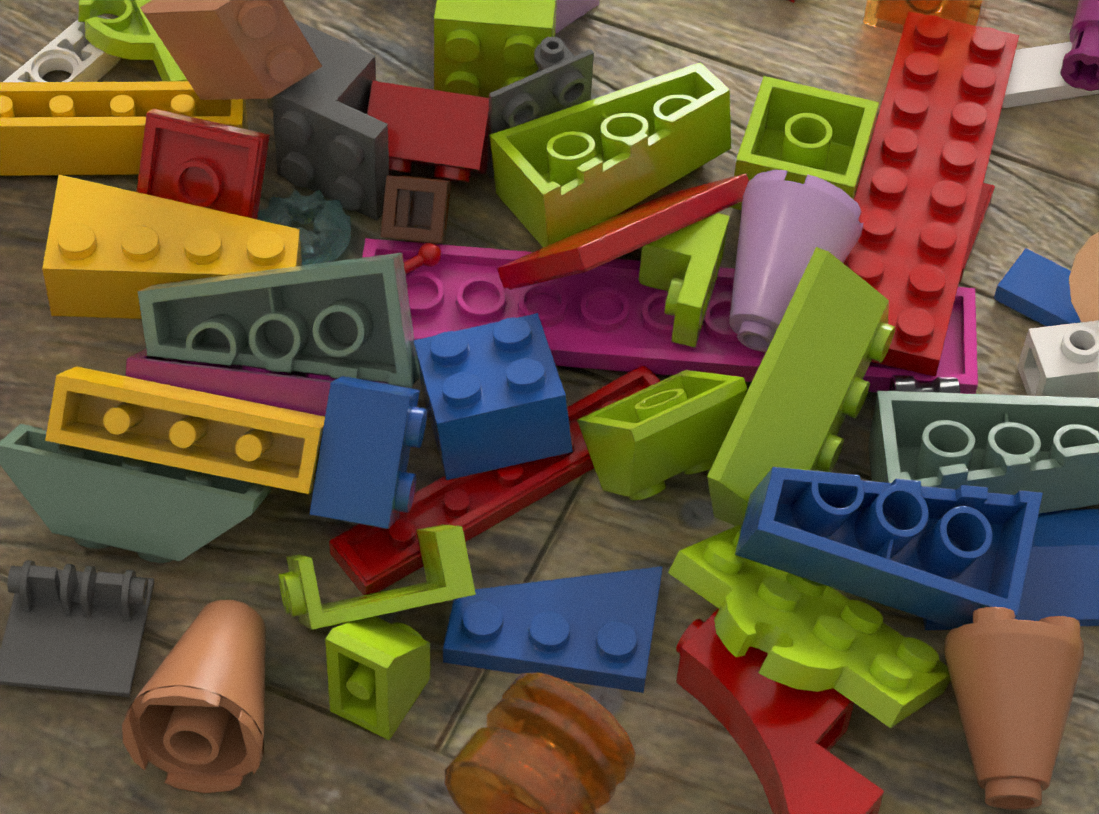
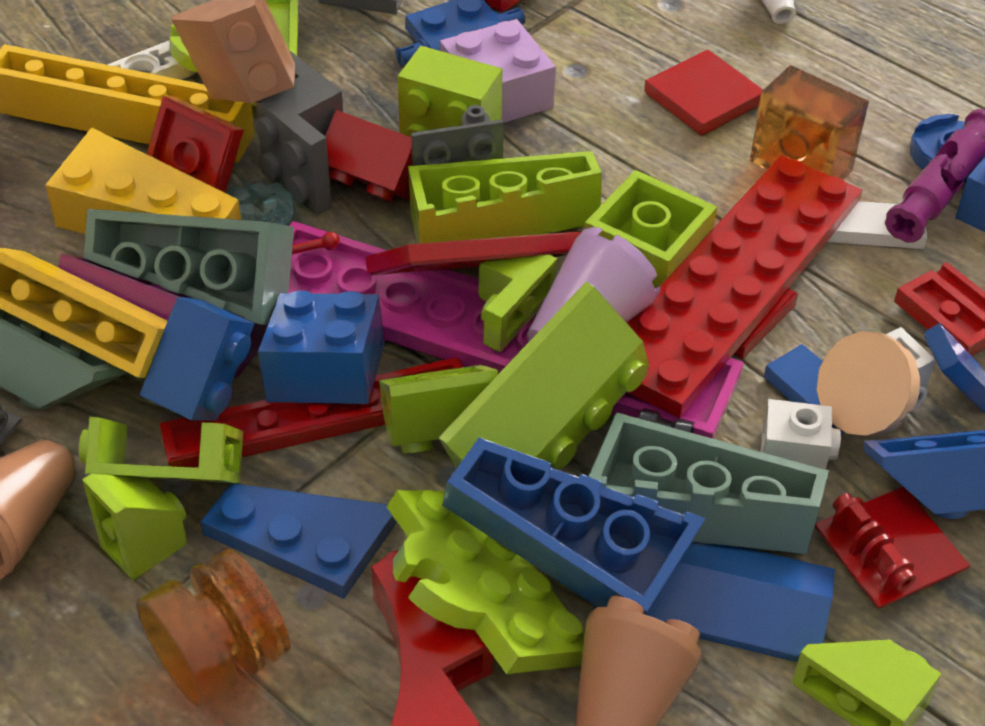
camera: 20 degrees right, 5 degrees down
(416, 208) = (336, 207): reddish brown brick -> none

